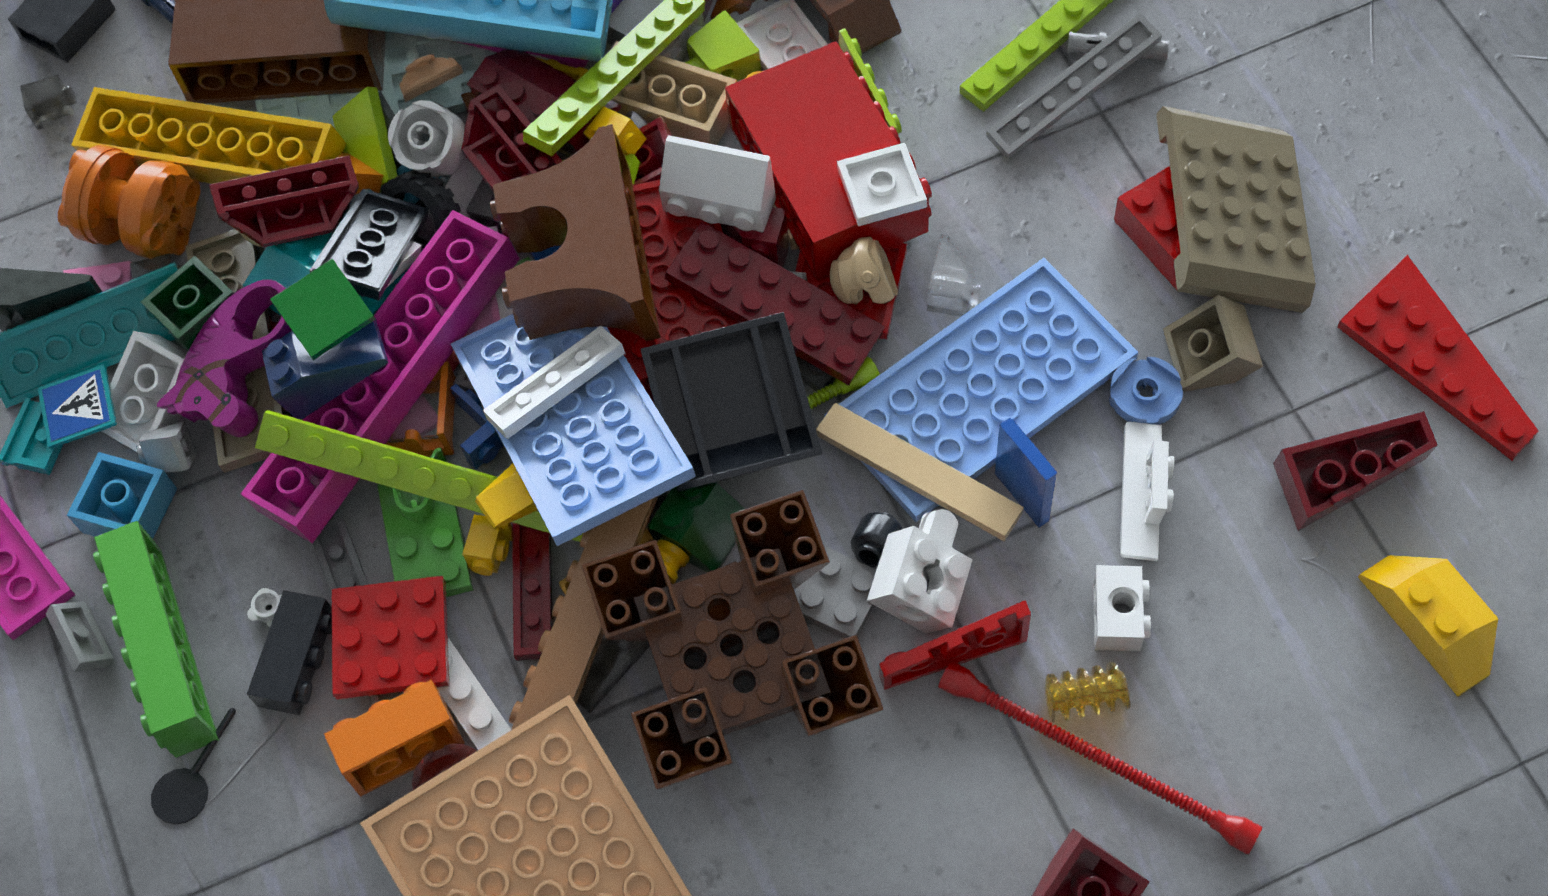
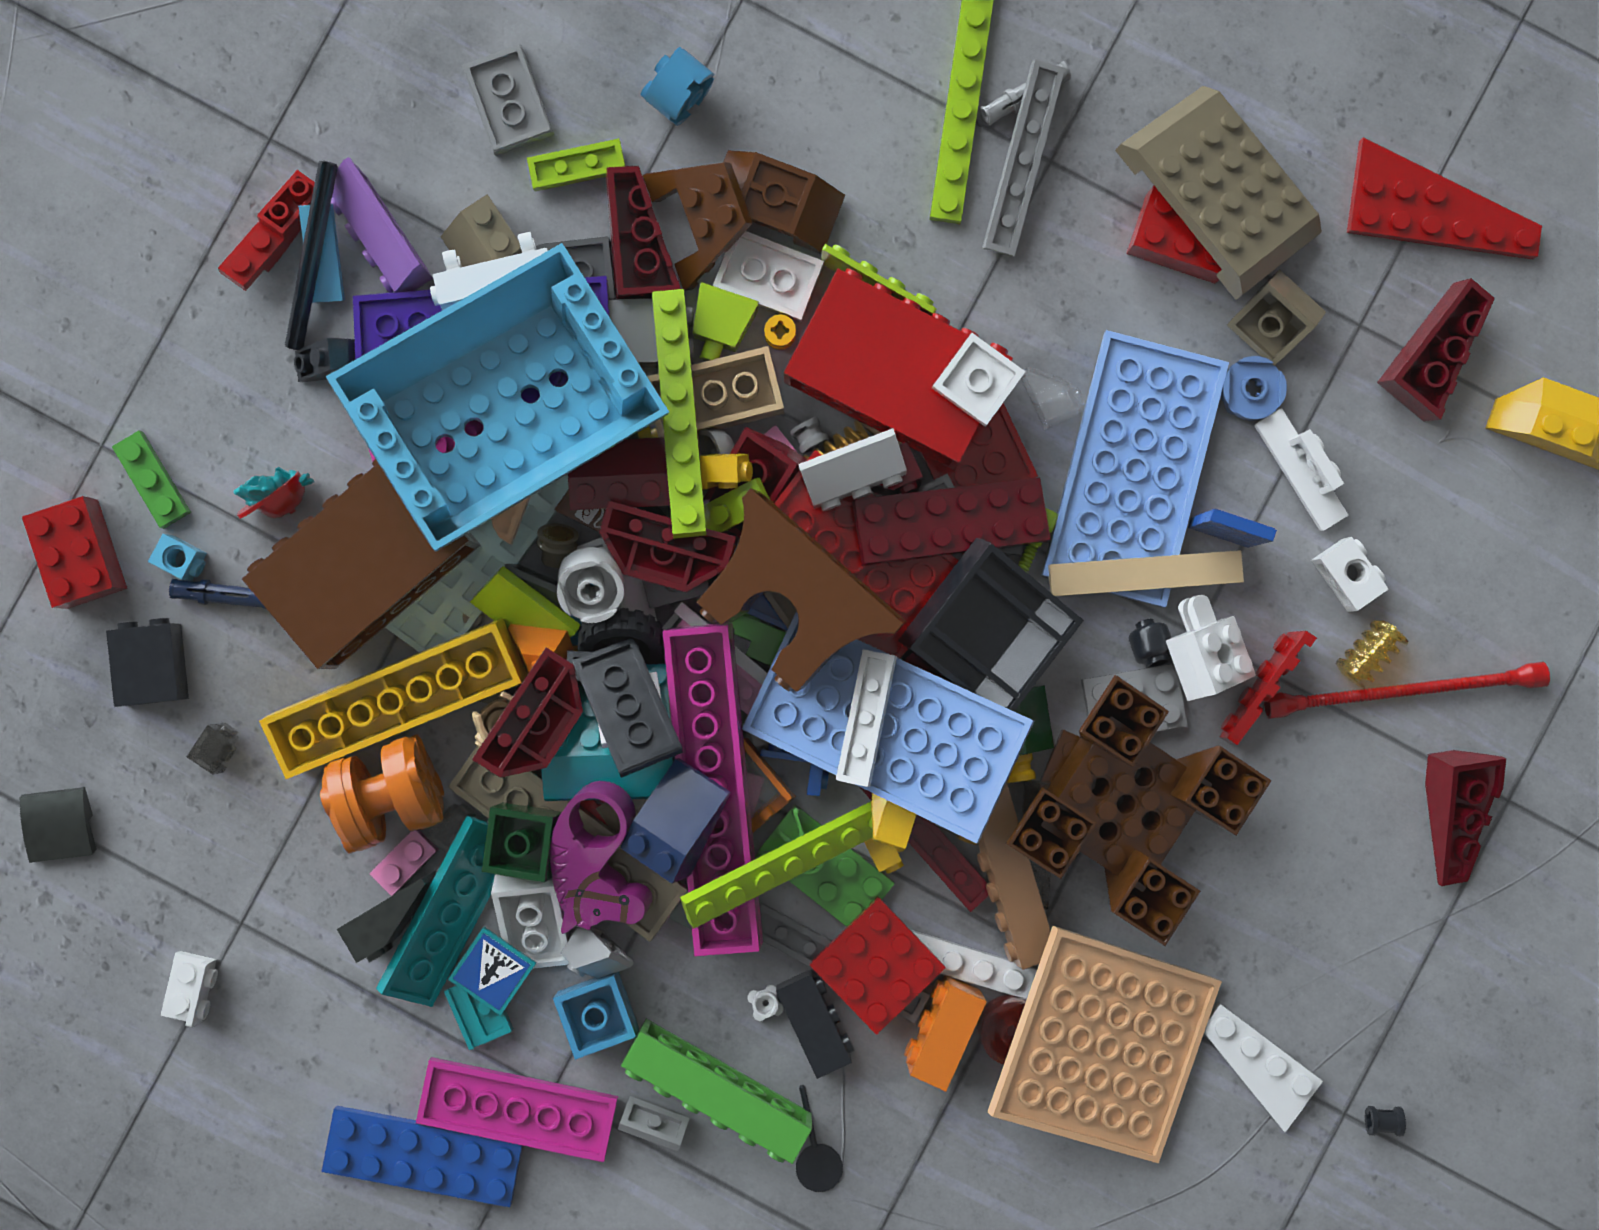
camera: 45 degrees left, 25 degrees up
(322, 309) = (657, 796): green tile -> none
(863, 268) = (998, 450): tan helmet -> none

